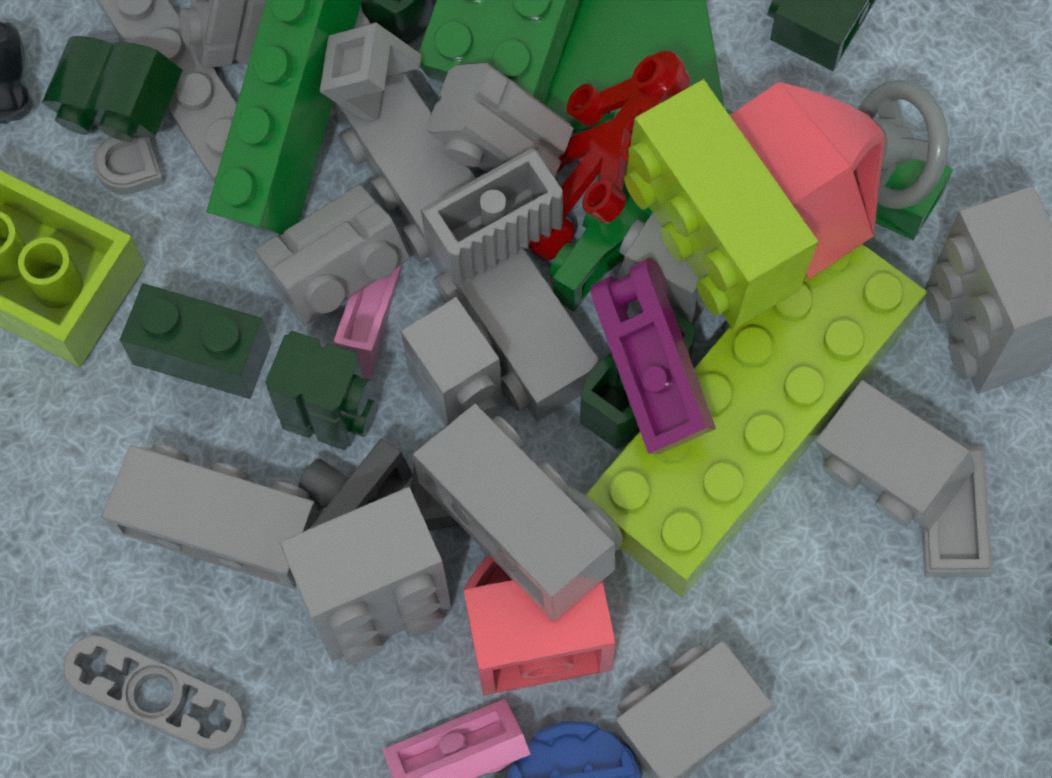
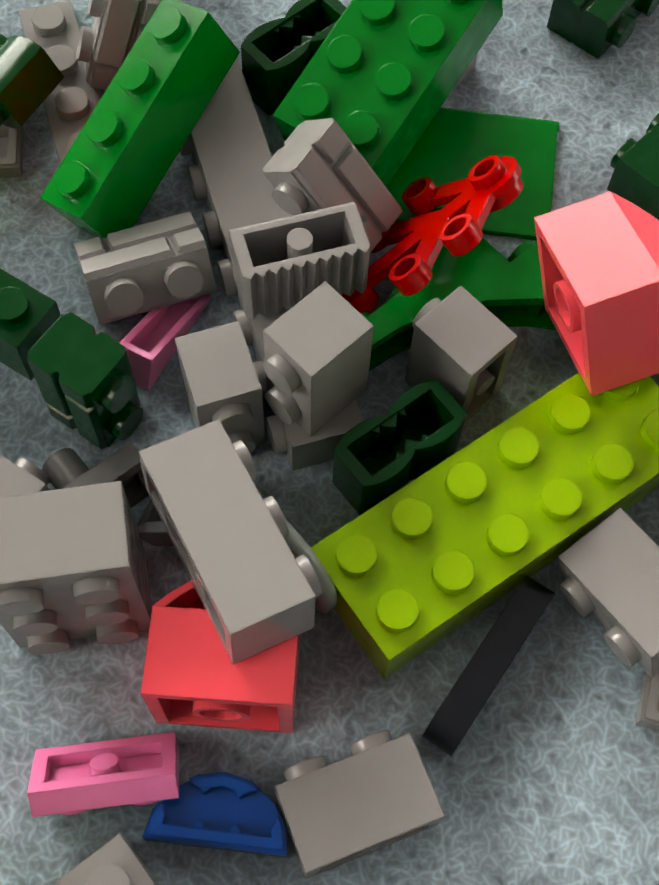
camera: 10 degrees right, 5 degrees down
(358, 67) = (219, 101): light grey panel -> none
(542, 317) = (316, 359): none -> light grey brick
(652, 358) = (414, 429): magenta plate -> none
(717, 205) = (520, 288): lime brick -> none
(777, 558) = (488, 665): none -> black beam

